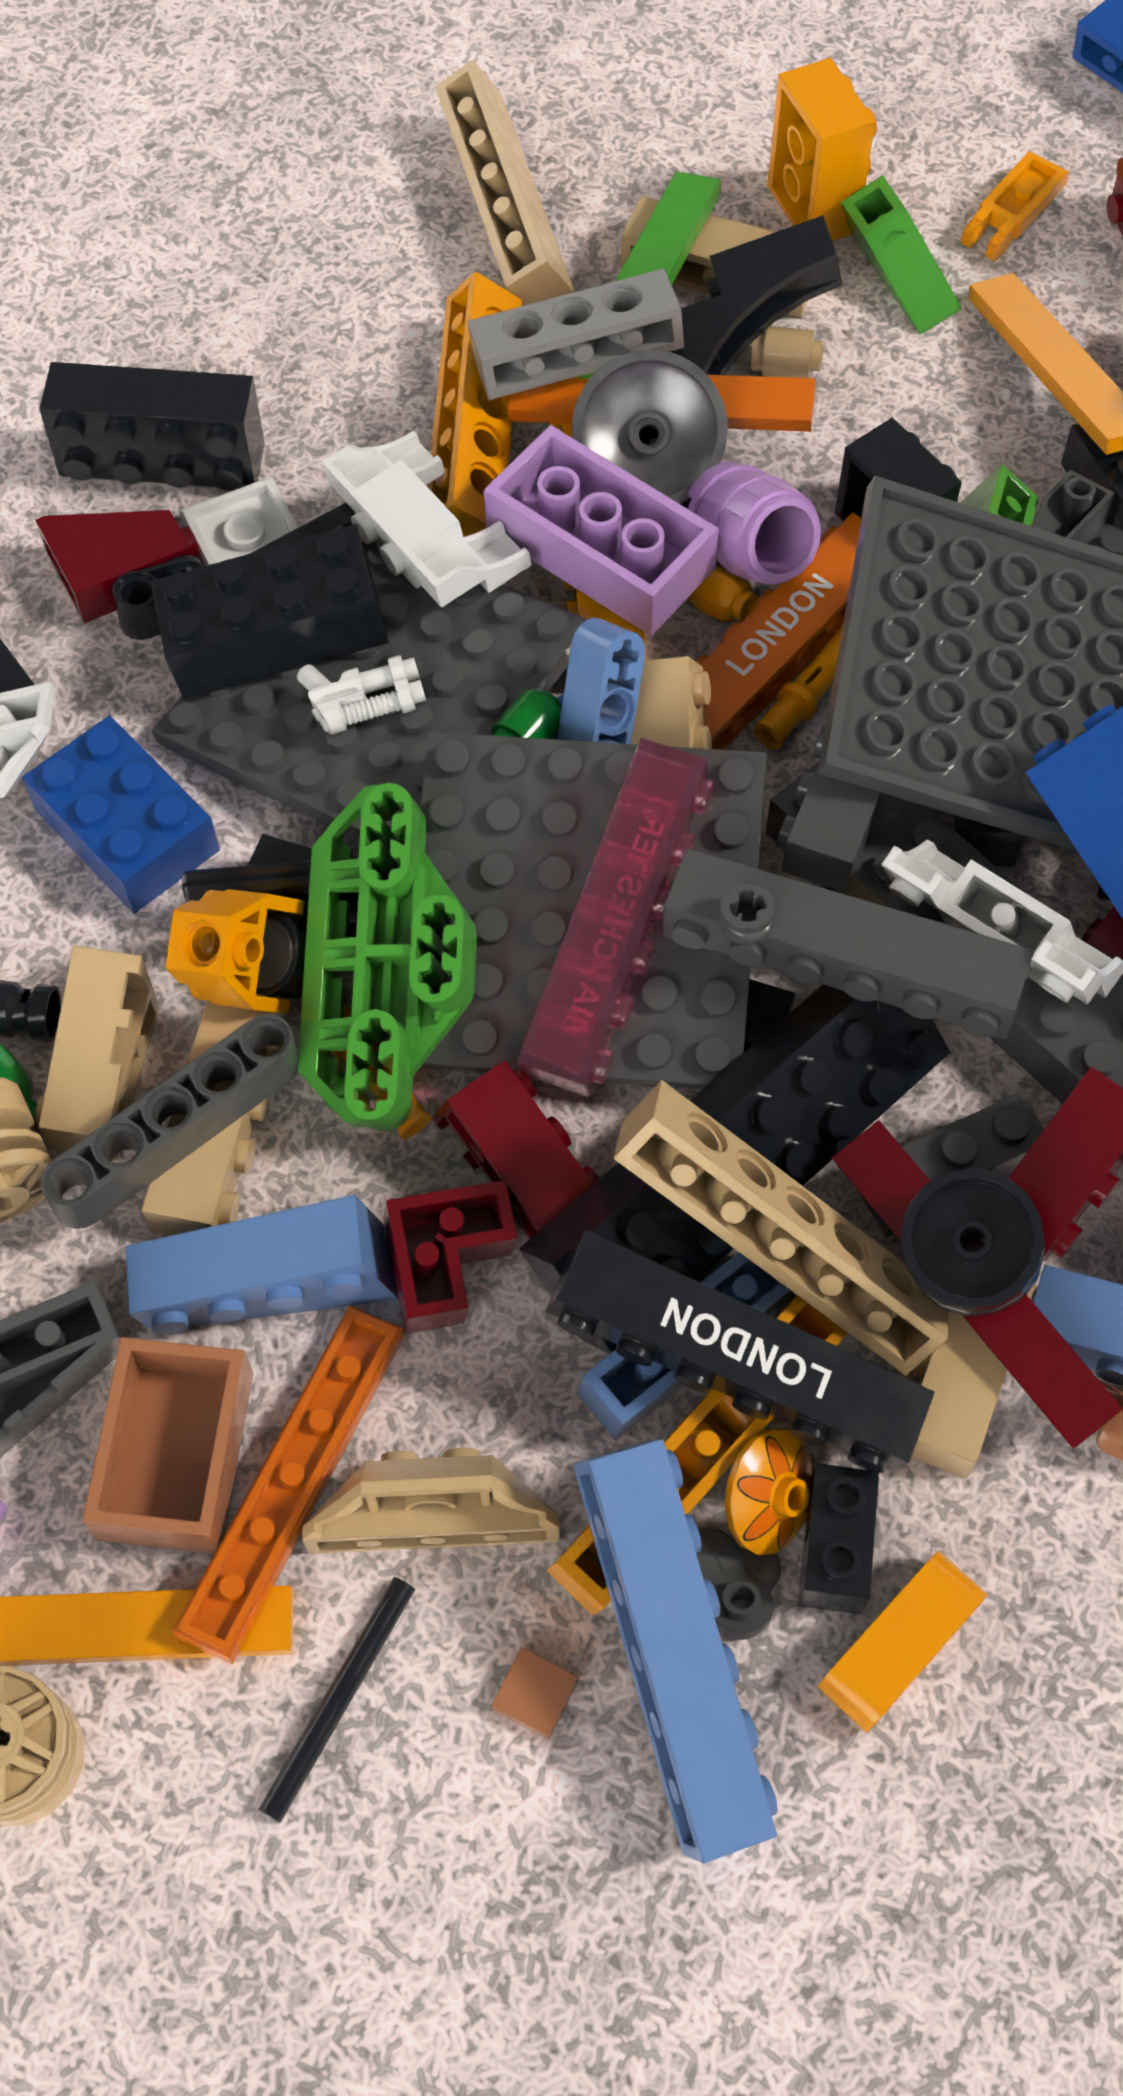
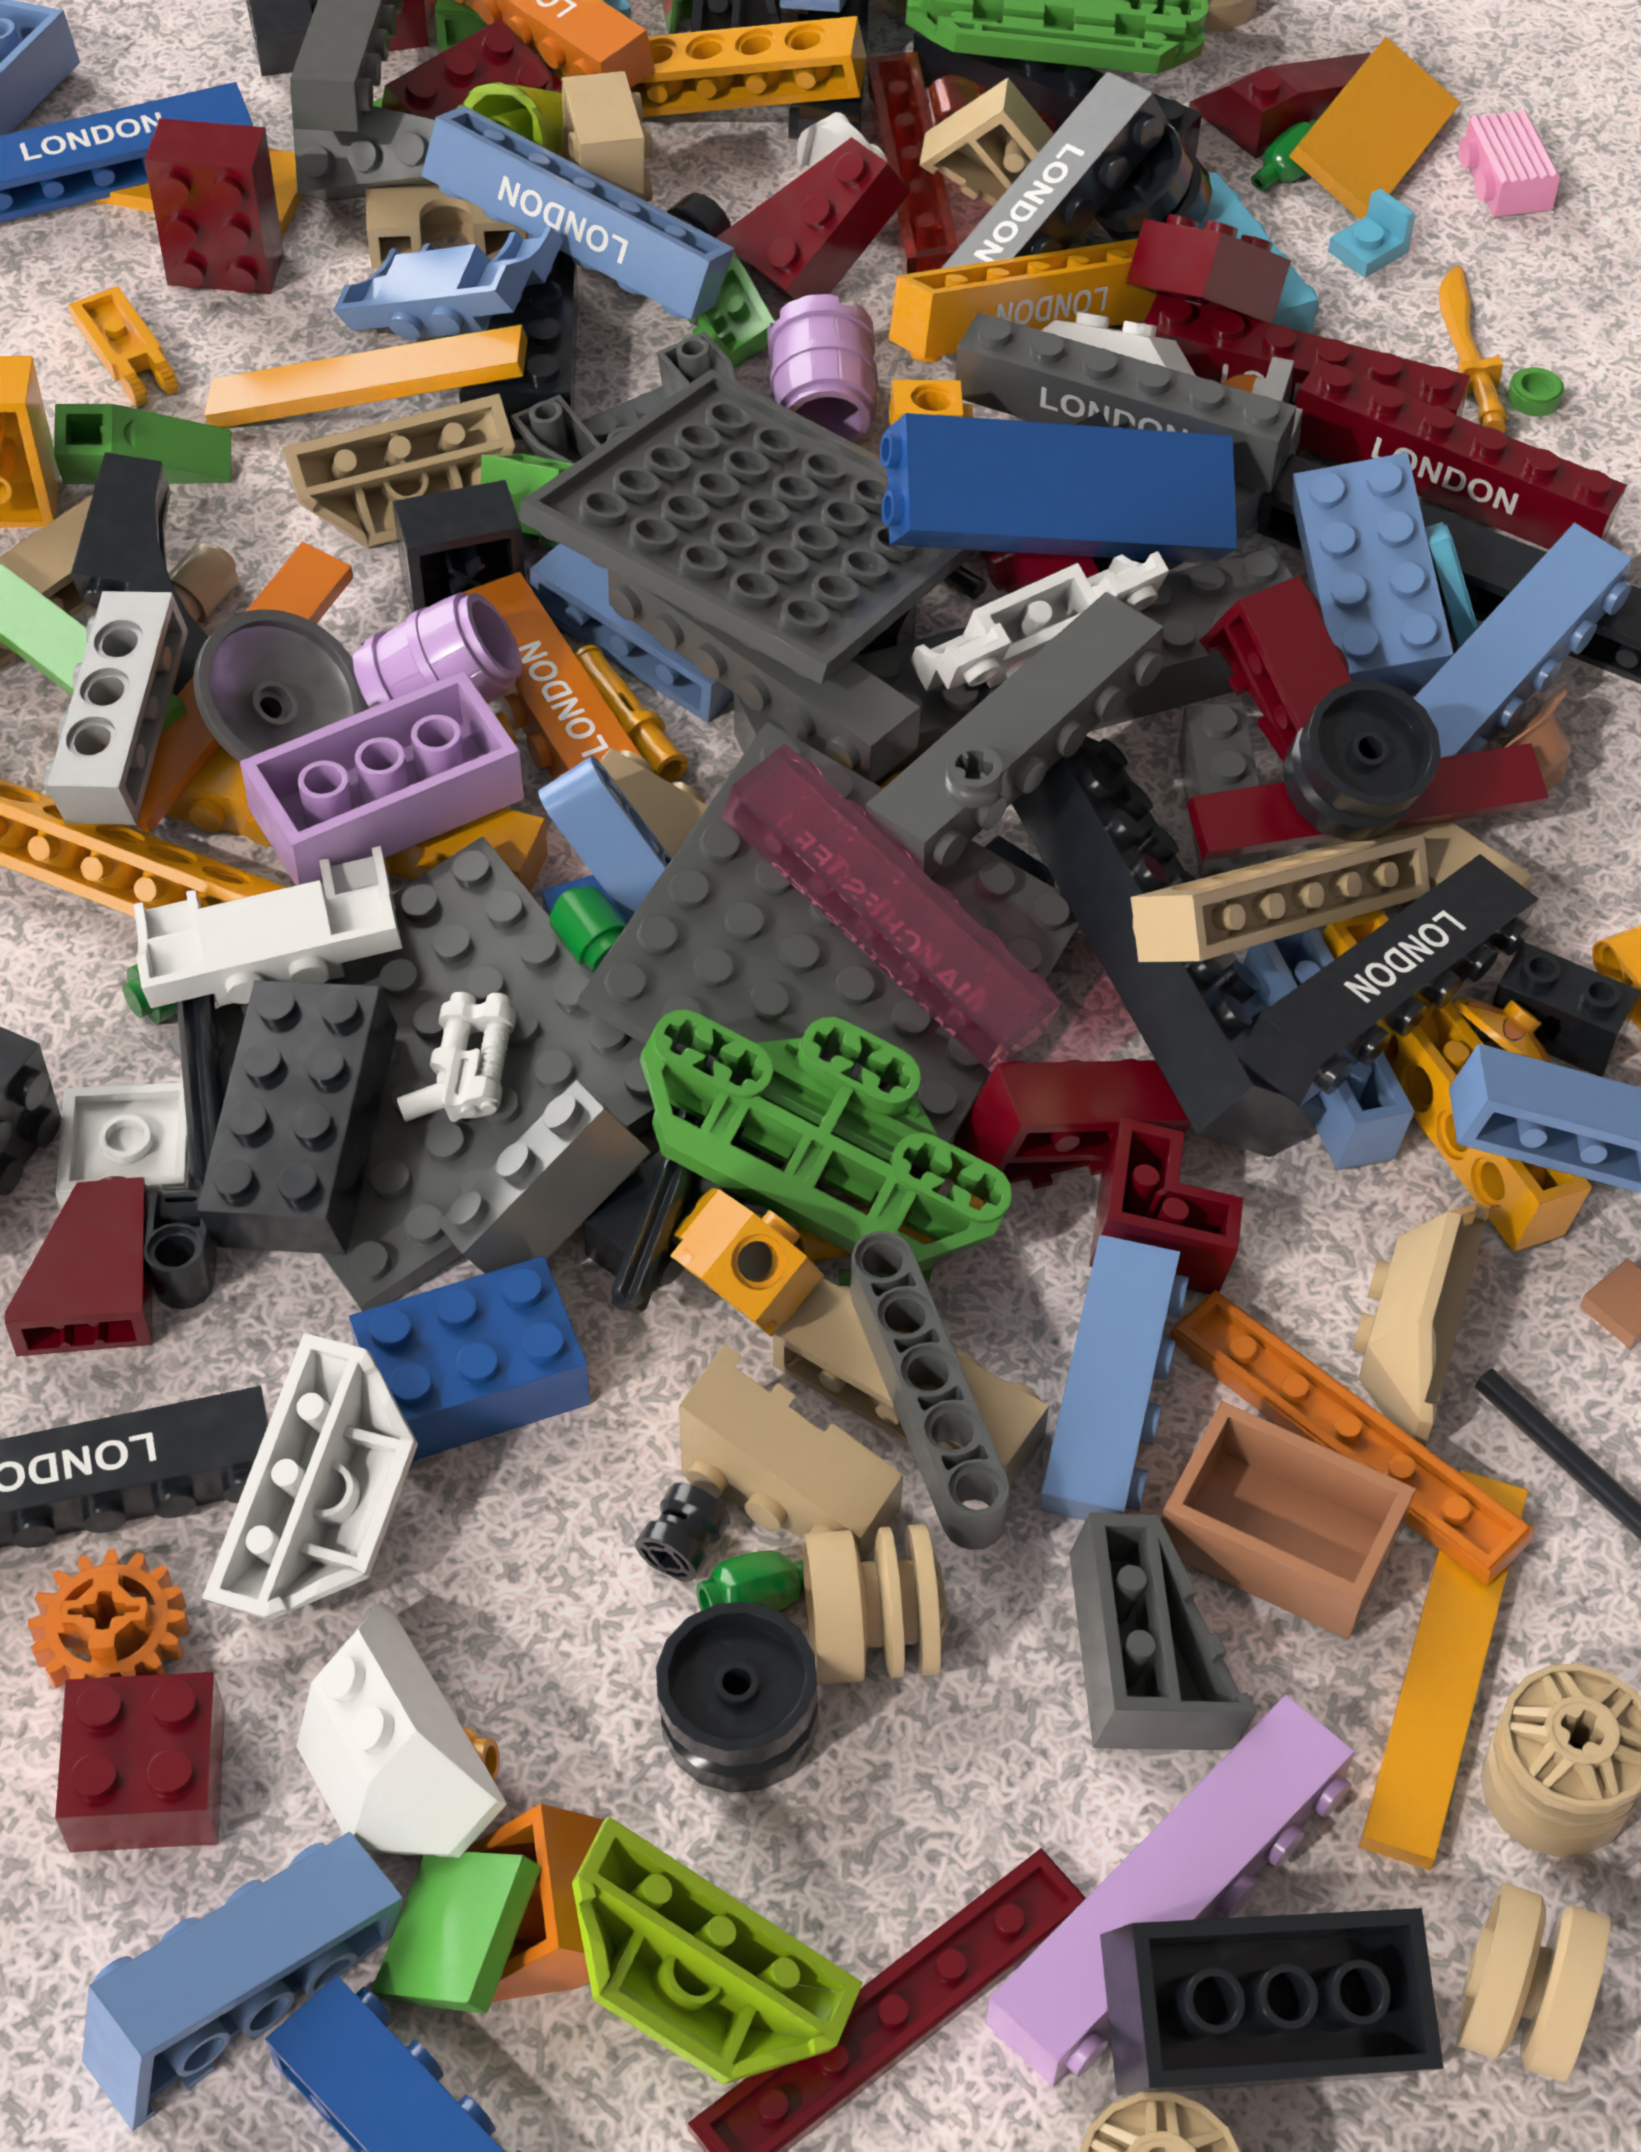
camera: 70 degrees left, 10 degrees down
(268, 789) = (544, 1183): none -> dark grey brick
(971, 420) = (361, 471): none -> tan wedge

